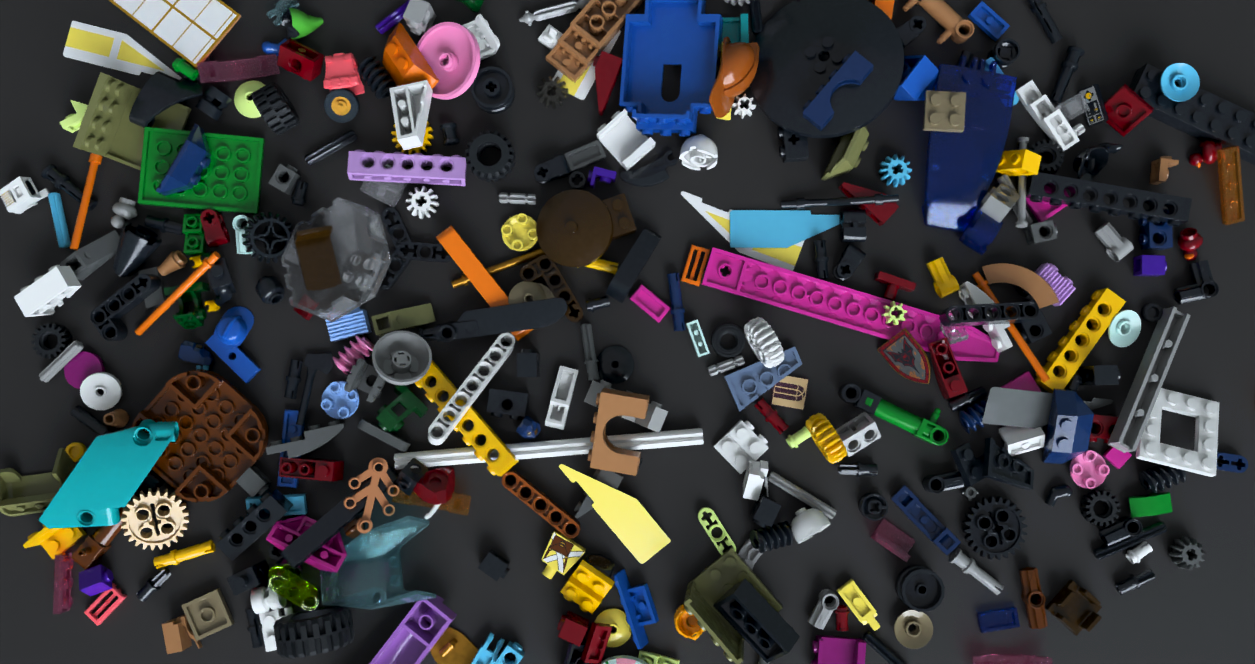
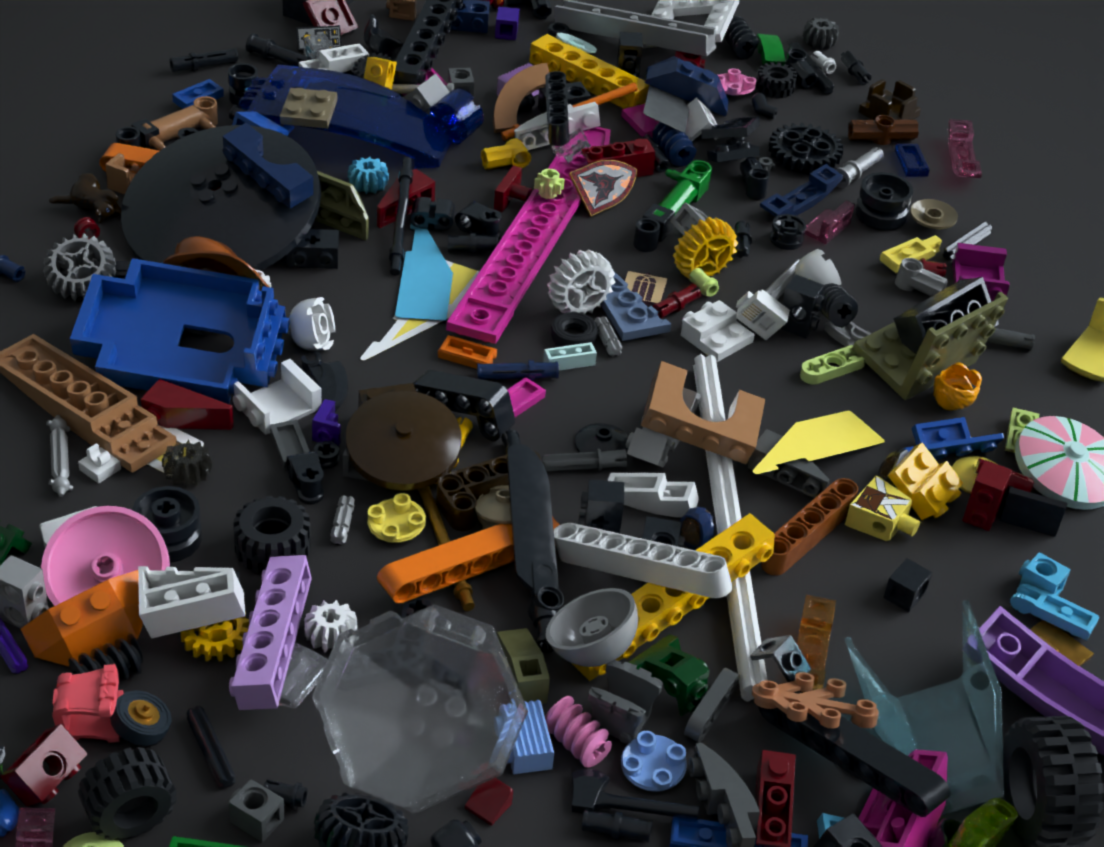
camera: 90 degrees left, 45 degrees down
(317, 258) = (412, 757): dark brown piece -> none
(436, 487) = (805, 628): dark red hat -> none
(1116, 245) = (480, 40): light grey piece -> none
(1116, 457) = (717, 65): dark pink tile -> none

